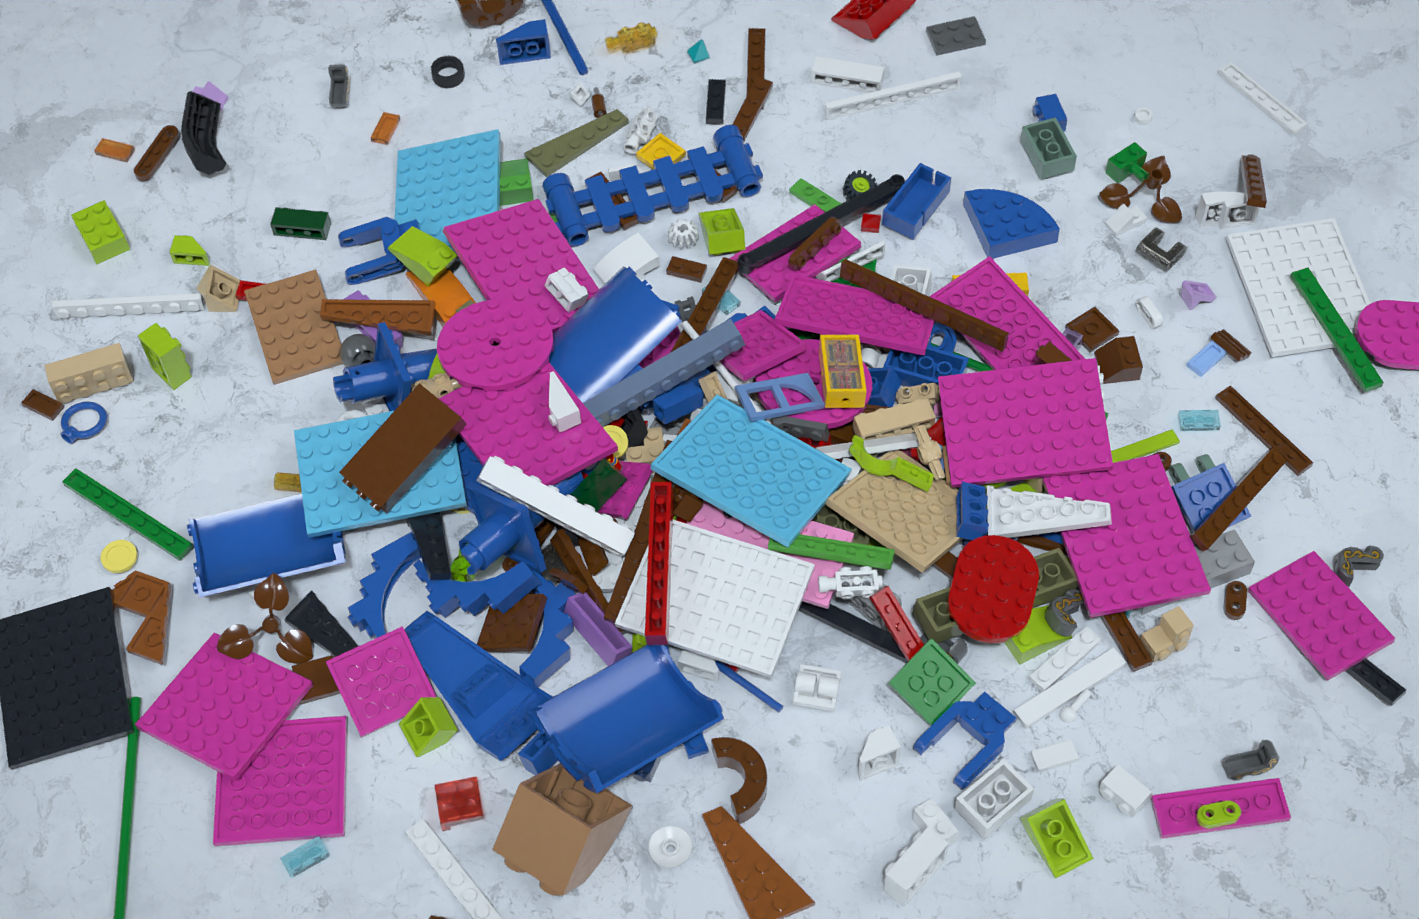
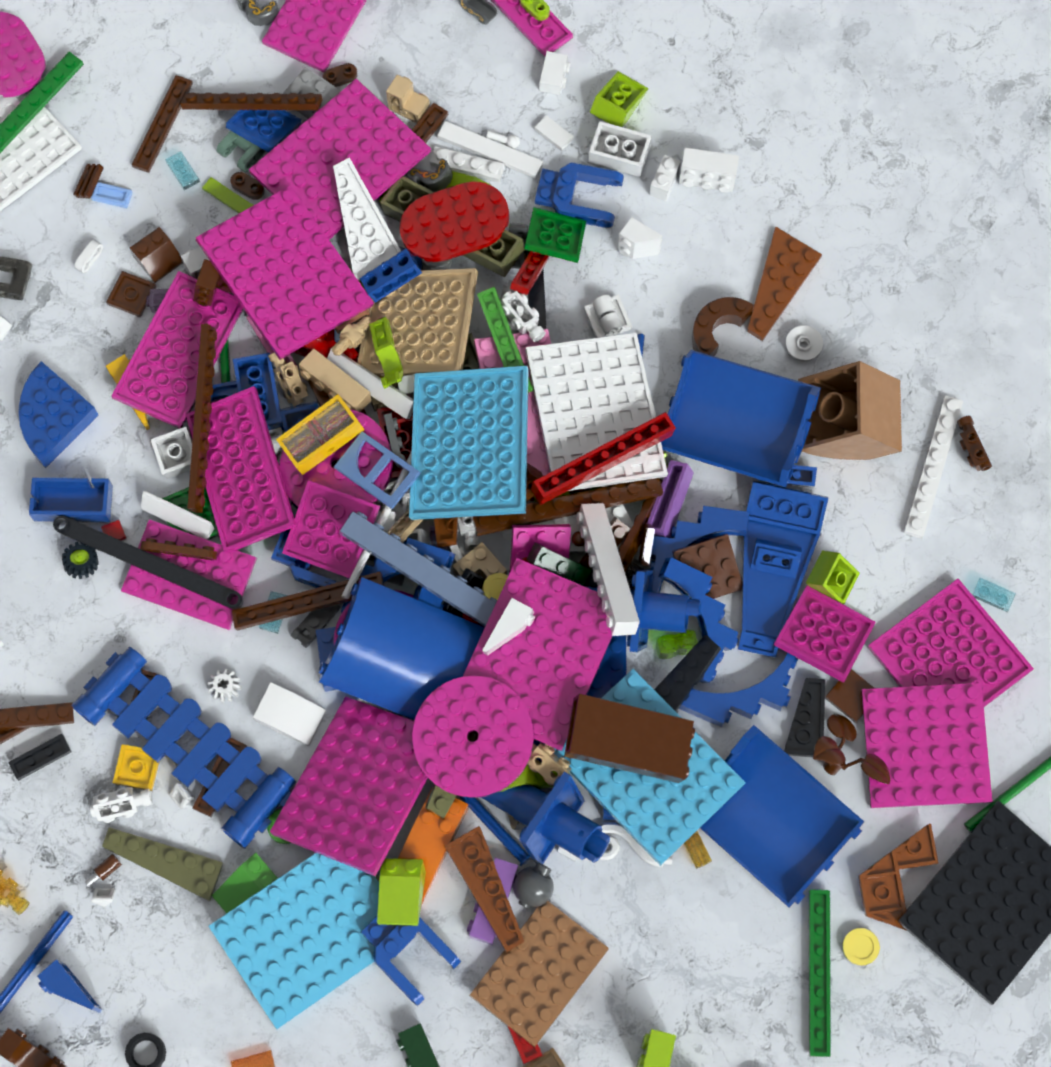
camera: 125 degrees left, 15 degrees up
(458, 802) = (876, 510): clear red piece -> none
(566, 289) = (363, 729): white brick -> none
(686, 269) = (260, 661): reddish brown plate -> none
(722, 231) = (199, 653): lime slope -> none
(812, 195) = (110, 596): bright green plate -> none
(1195, 292) = (49, 227): lavender slope -> none

